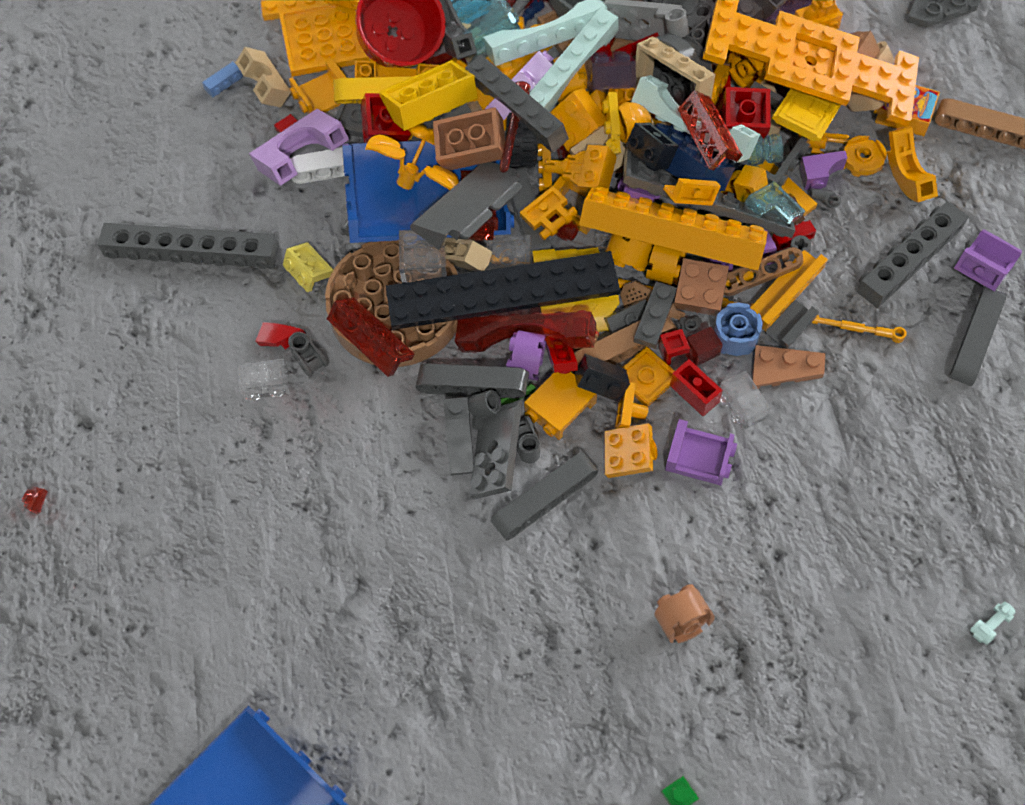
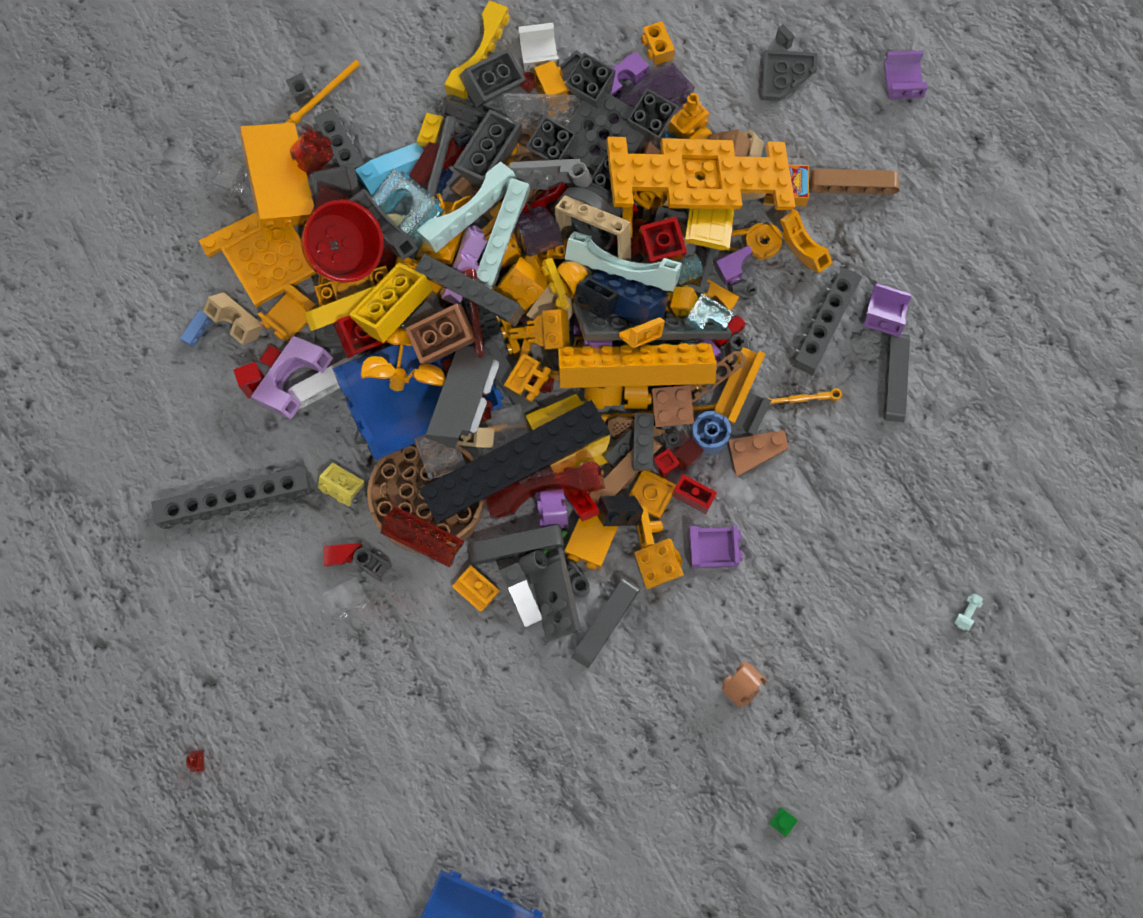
camera: 20 degrees left, 10 degrees up
(253, 132) = (248, 378): none -> red panel
(410, 415) = (475, 589): none -> light orange plate
(710, 123) = (640, 266): clear red fence -> none

